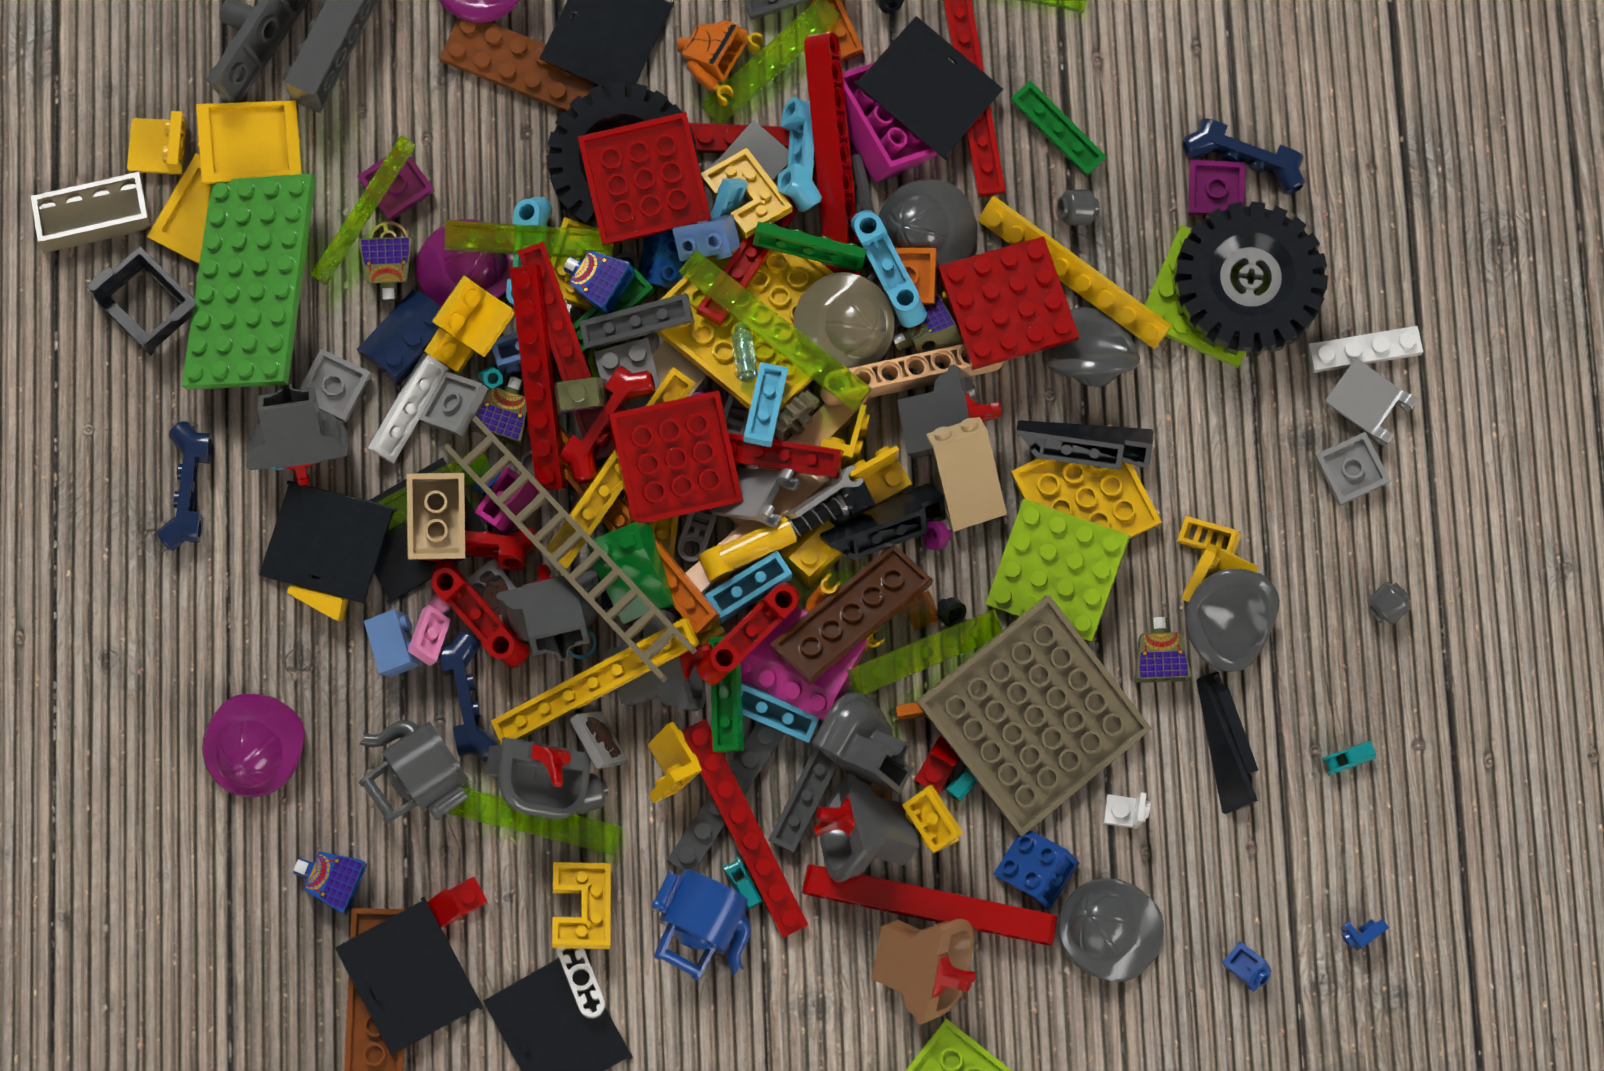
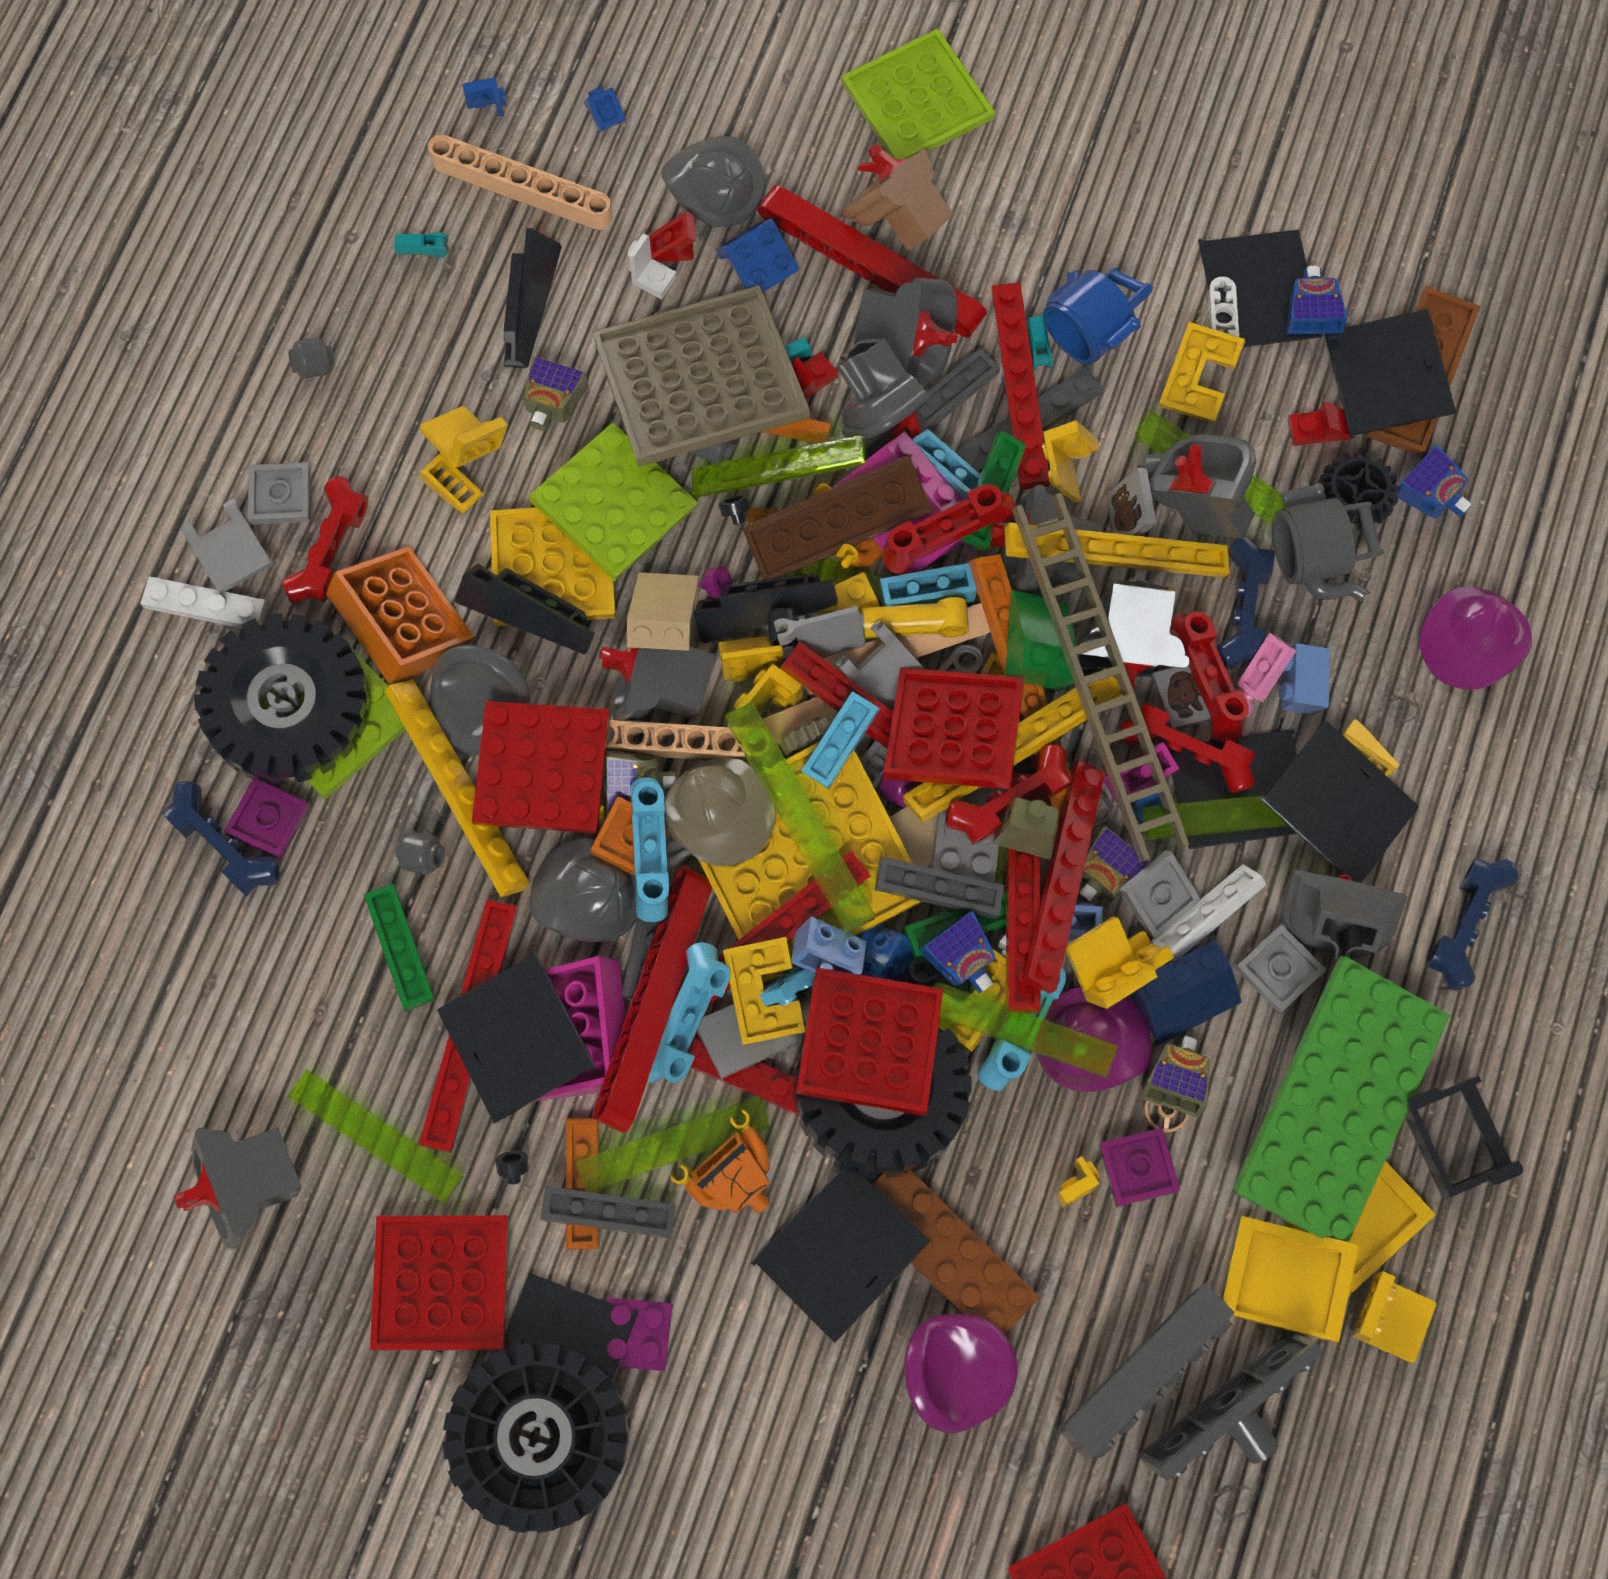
camera: 155 degrees left, 5 degrees down
(90, 212) = (1491, 1270): dark tan slope -> none
(363, 210) = (1187, 1142): clear neon green tile -> none
(413, 847) = (1380, 492): none -> black gear
(435, 516) = (1222, 770): tan slope -> none
(438, 147) = (1074, 1188): none -> yellow bracket
(490, 377) = (1112, 901): teal bar -> none
(499, 1020) = (1316, 305): none -> torso
(744, 353) = (840, 808): clear light blue cylinder -> none
(809, 246) = (732, 906): green plate -> none
(932, 819) = (838, 316): yellow bracket -> none
(1120, 850) = (674, 240): none -> red slope
(1193, 401) = (397, 613): none -> orange slope
(1231, 618) = (474, 389): dark grey piece -> none
(1285, 476) = (347, 509): none -> red plate
(1302, 851) = (528, 192): none -> light nougat beam

